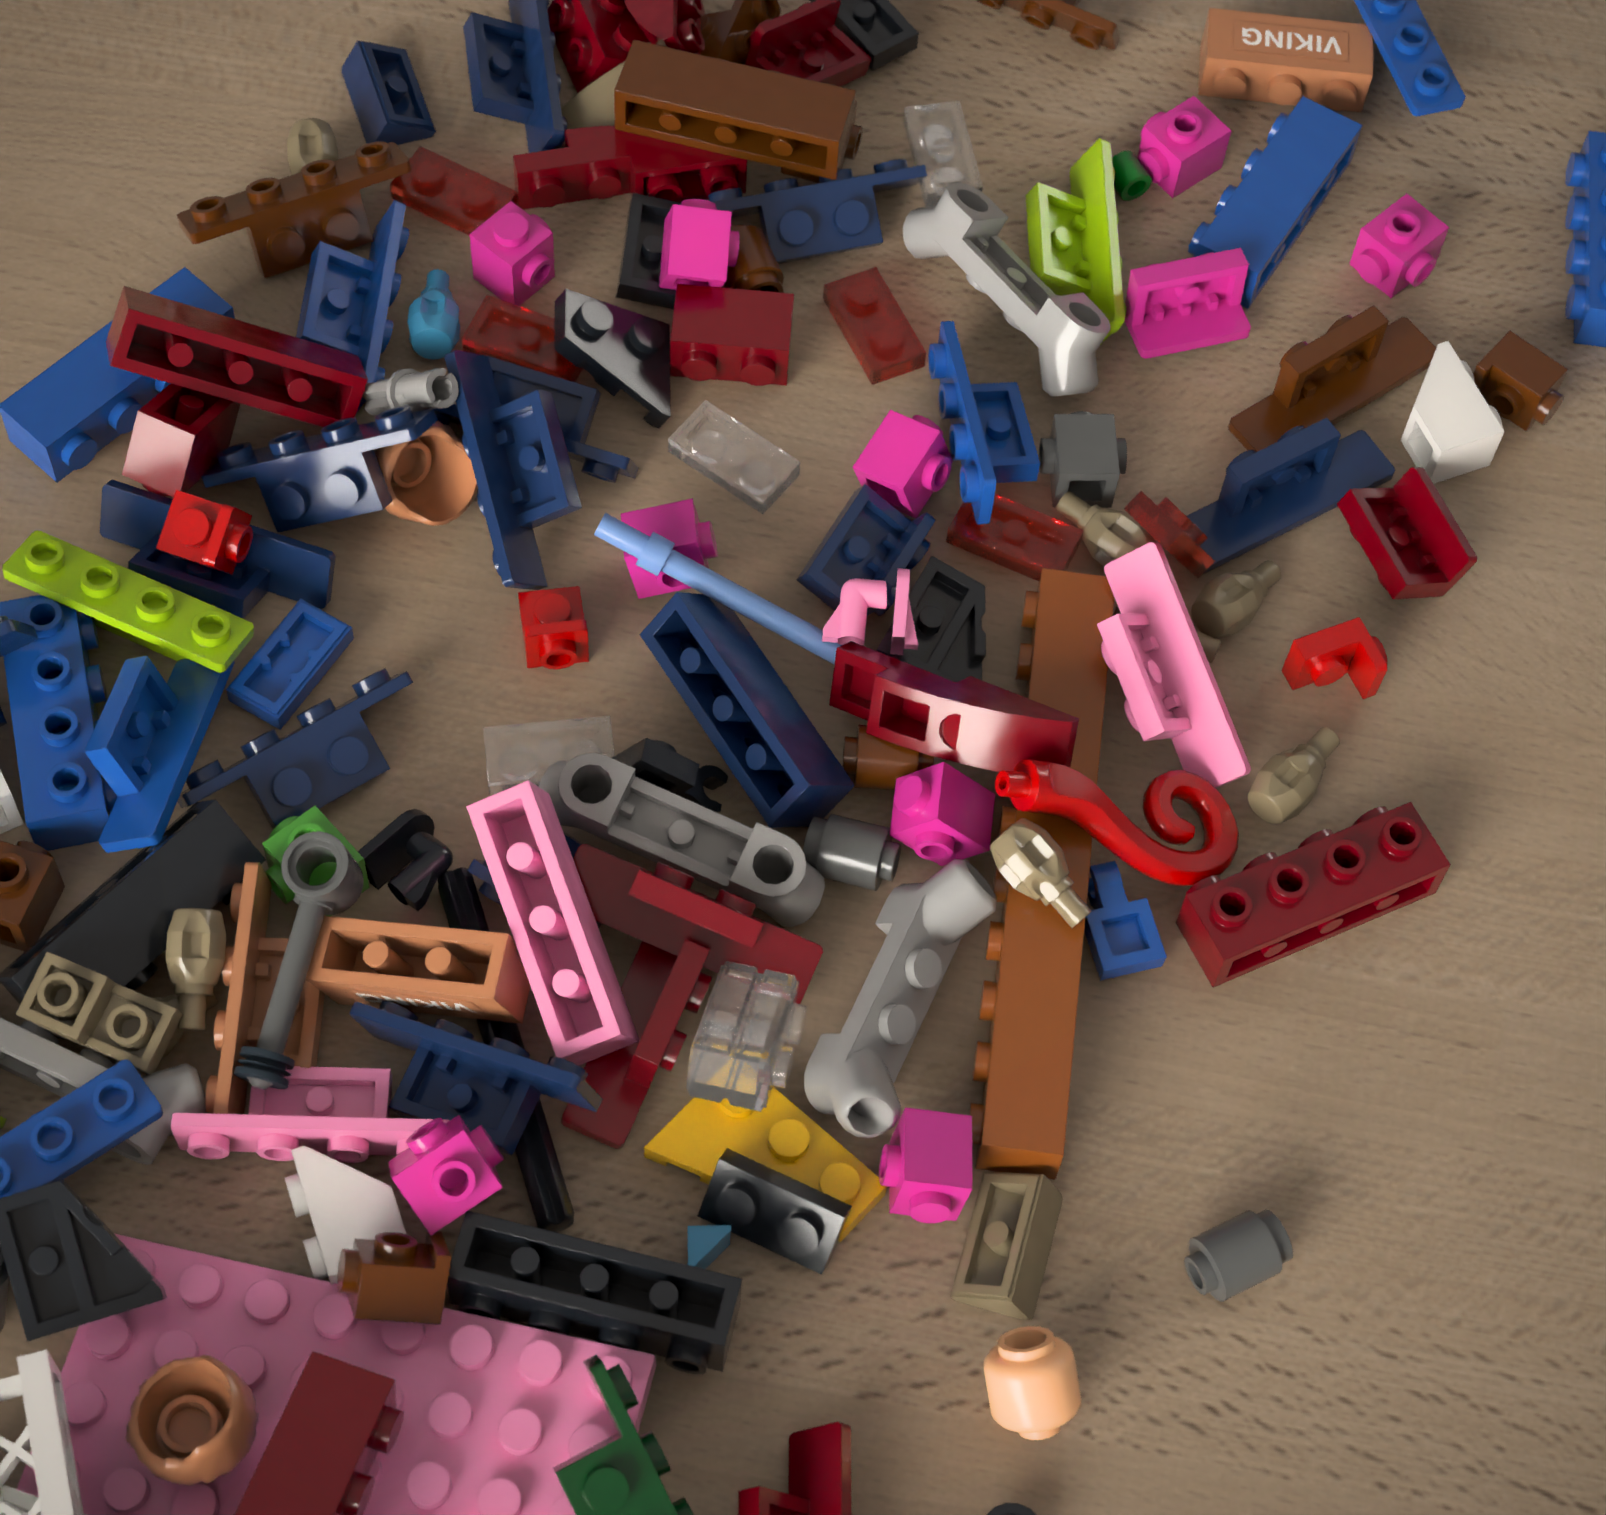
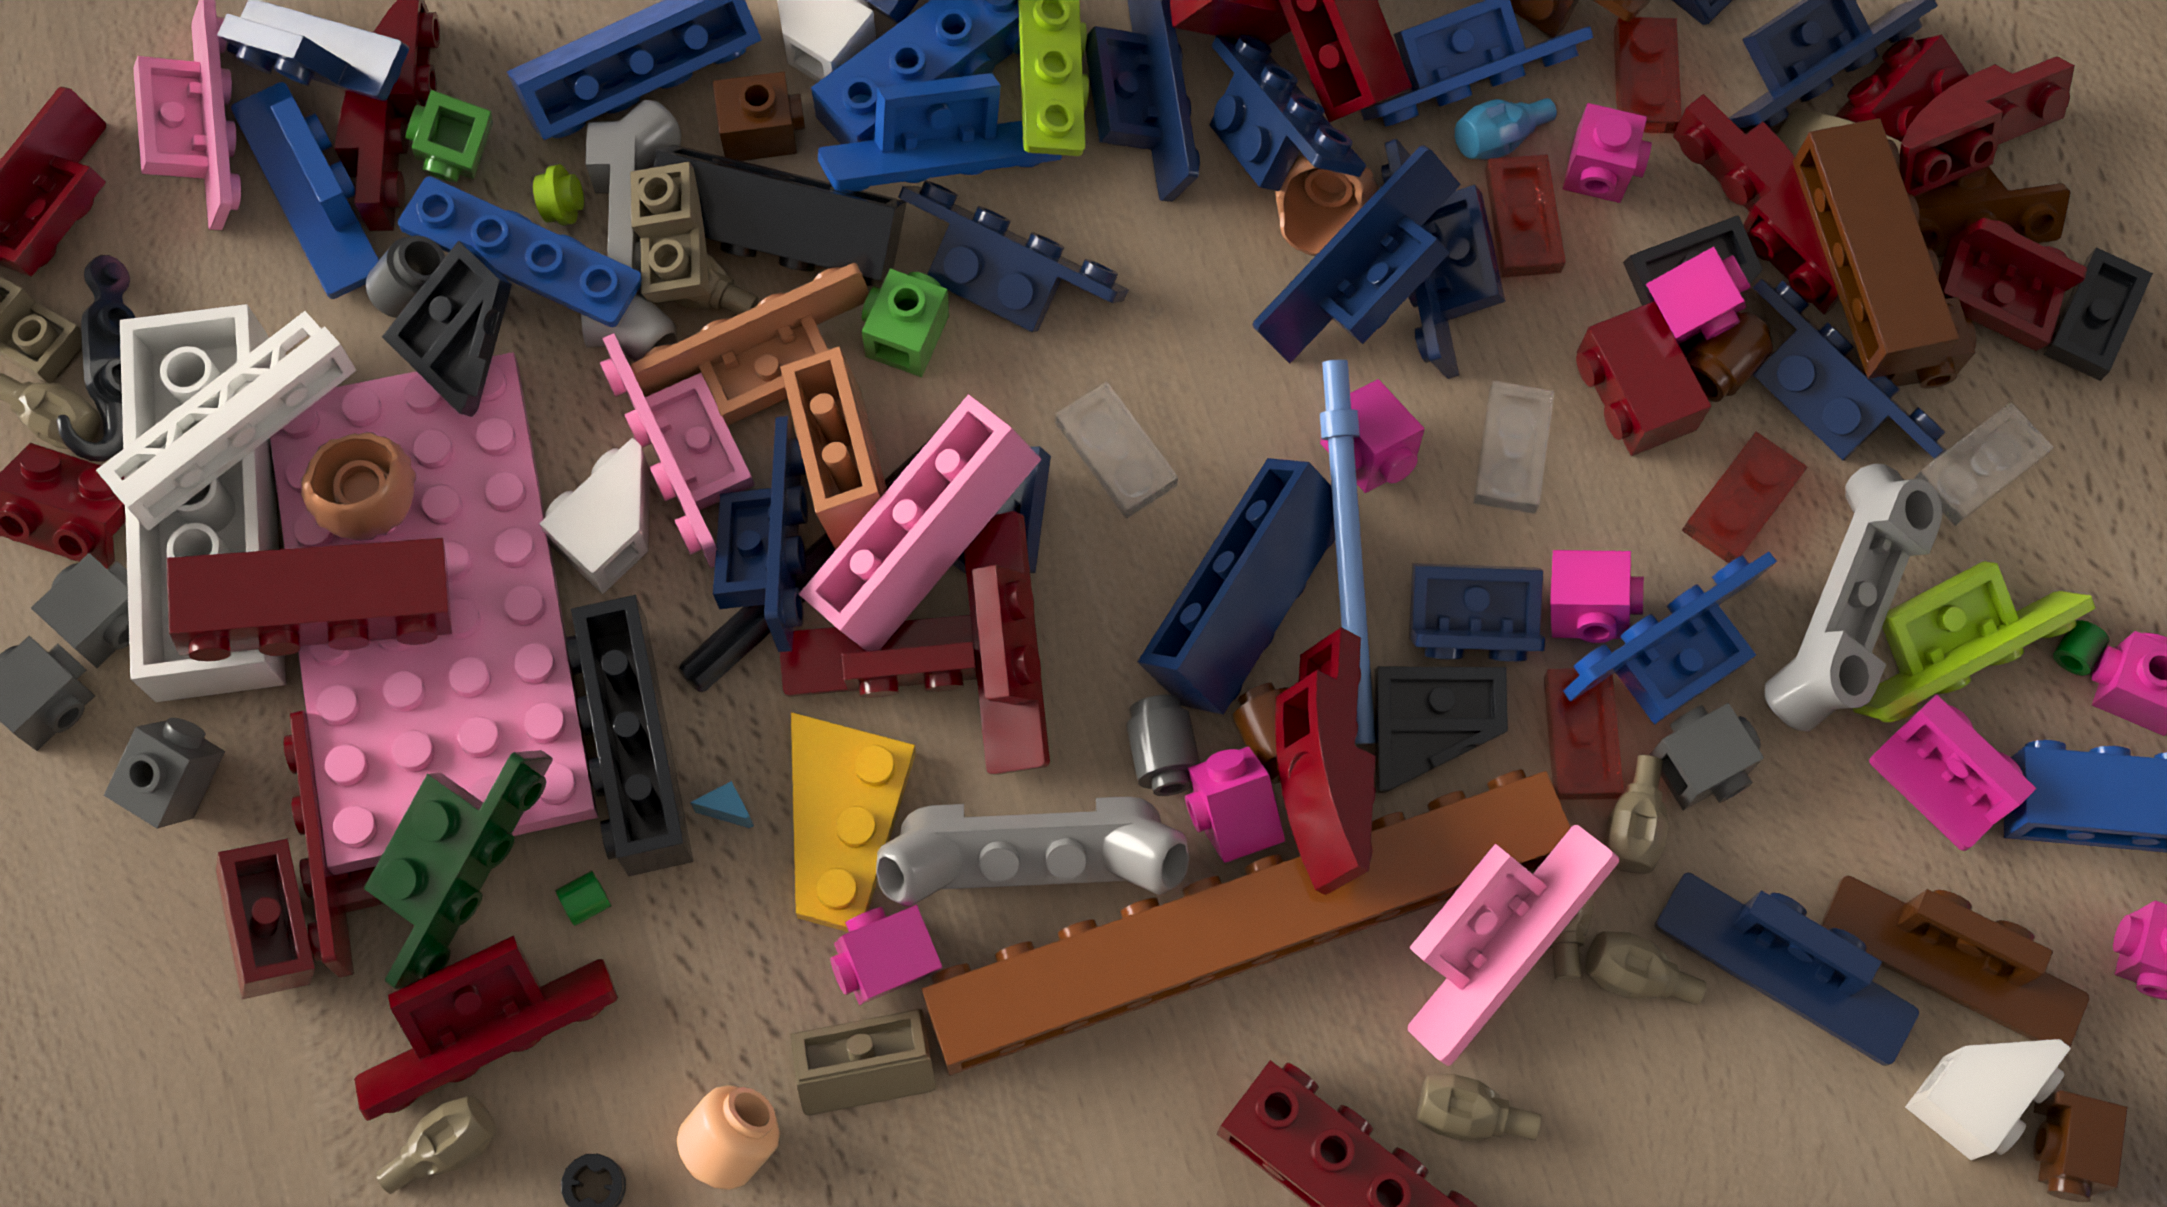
camera: 65 degrees right, 10 degrees up
(195, 961) = (758, 272): dark tan piece -> none
(206, 532) = (1152, 66): red bracket -> none
(265, 1063) = (848, 314): dark grey piece -> none
(290, 664) = (1085, 202): blue plate -> none
(395, 847) = (952, 374): black piece -> none
(396, 1277) = (552, 571): reddish brown brick -> none
(412, 388) = (1380, 144): light grey axle -> none
(446, 1171) = (661, 561): dark pink brick -> none
(553, 627) = (1246, 389): red bracket -> none
(617, 350) = (1557, 290): black wing -> none
(664, 767) = (1141, 540): black plate -> none
(668, 829) = (1081, 596): light grey plate -> none
(724, 1421) = (583, 898): none -> green piece
(745, 1037) = (921, 740): clear brick -> none
(774, 1211) = (783, 846): black plate -> none
(858, 595) = (1410, 618): bright pink piece -> none
(1038, 869) = (1208, 911): dark tan piece -> none
(1067, 793) = (1298, 897): red plant -> none
(1120, 931) = (1216, 1021): blue plate -> none
(1172, 531) = (1650, 870): clear red plate -> none
(1333, 653) = (1623, 1086): red bracket -> none
(1409, 536) = (1813, 1107): dark red bracket -> none

